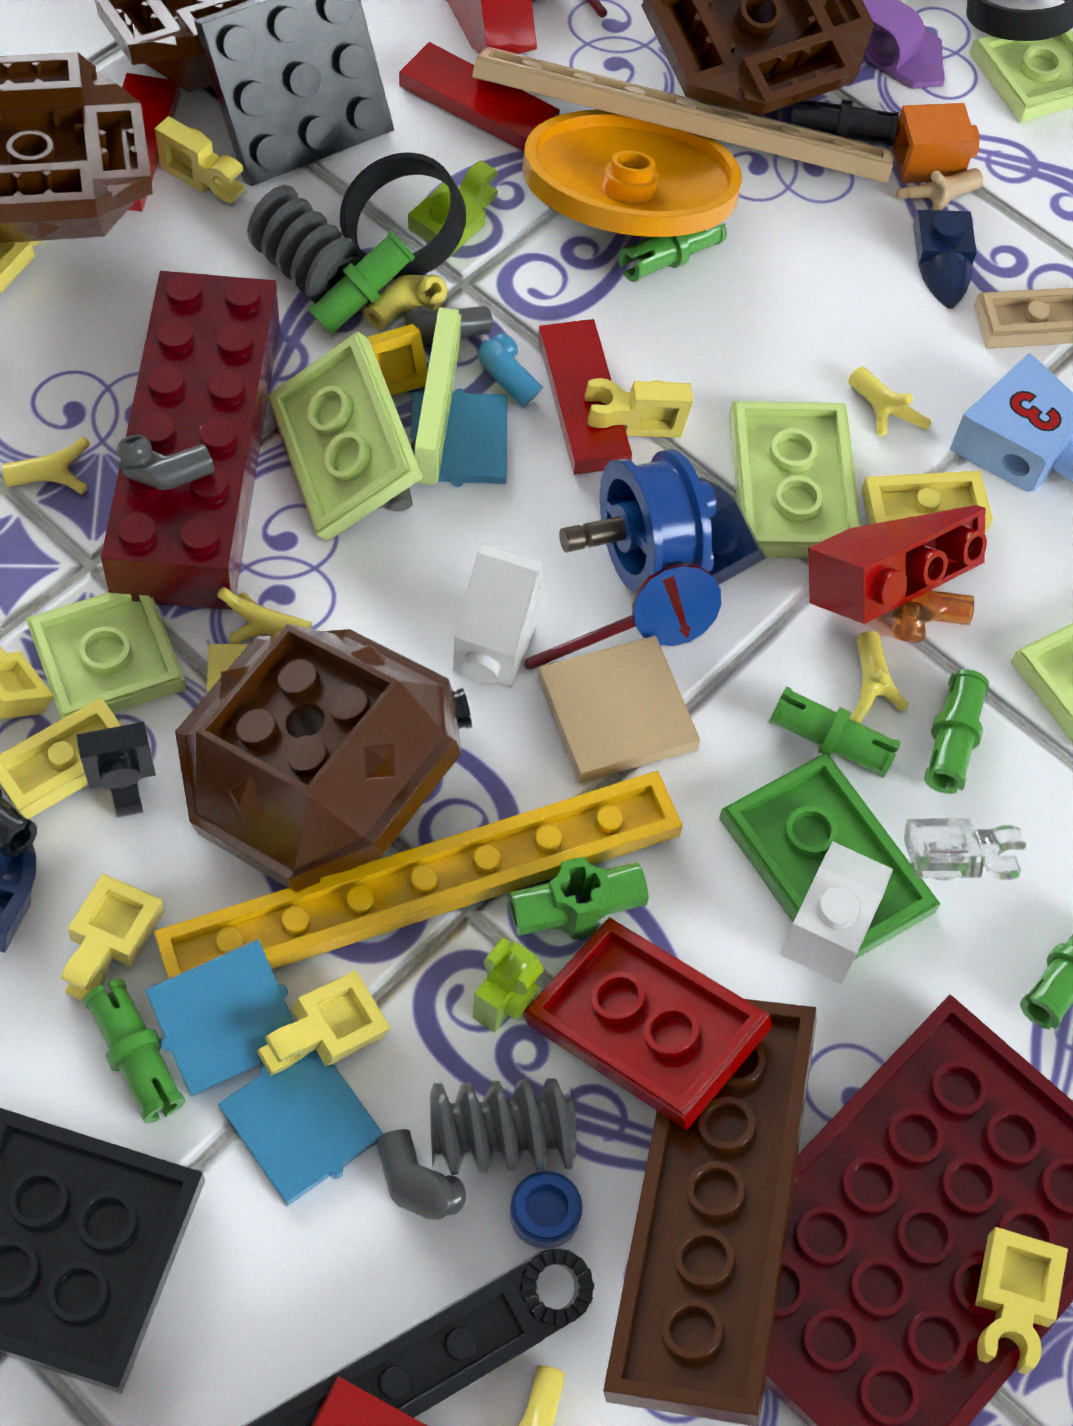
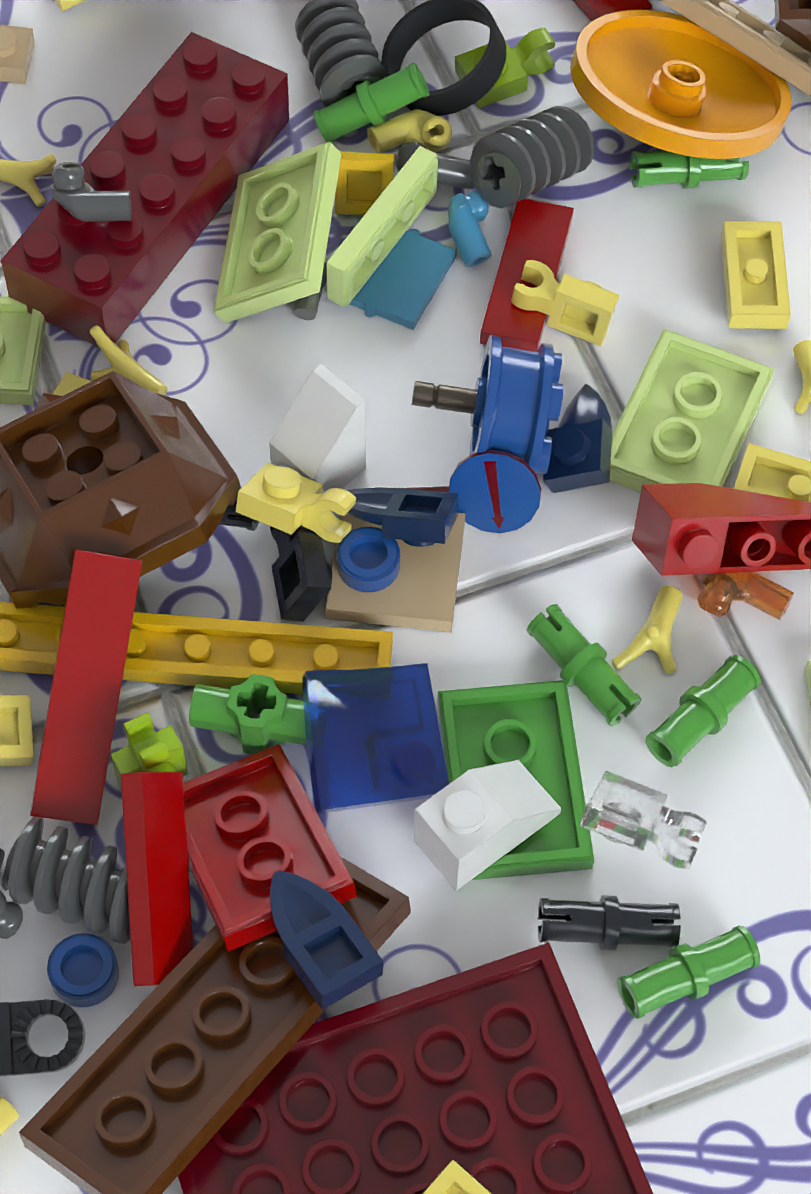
camera: 30 degrees right, 0 degrees up
(419, 939) = (85, 687): none -> red tile
(504, 686) = (289, 500): none -> light yellow plate
(537, 283) = (531, 155): none -> dark grey piece
(540, 743) = (300, 573): none -> black plate
(585, 1091) = (156, 873): none -> red tile
(597, 712) = (368, 560): none -> blue tile
(617, 654) = (408, 514): none -> dark blue plate
(697, 875) = (372, 737): none -> clear blue plate
(778, 1079) = (321, 939): none -> dark blue plate
(783, 324) = (755, 275): none -> light yellow plate
(983, 954) = (608, 922): none -> black pin

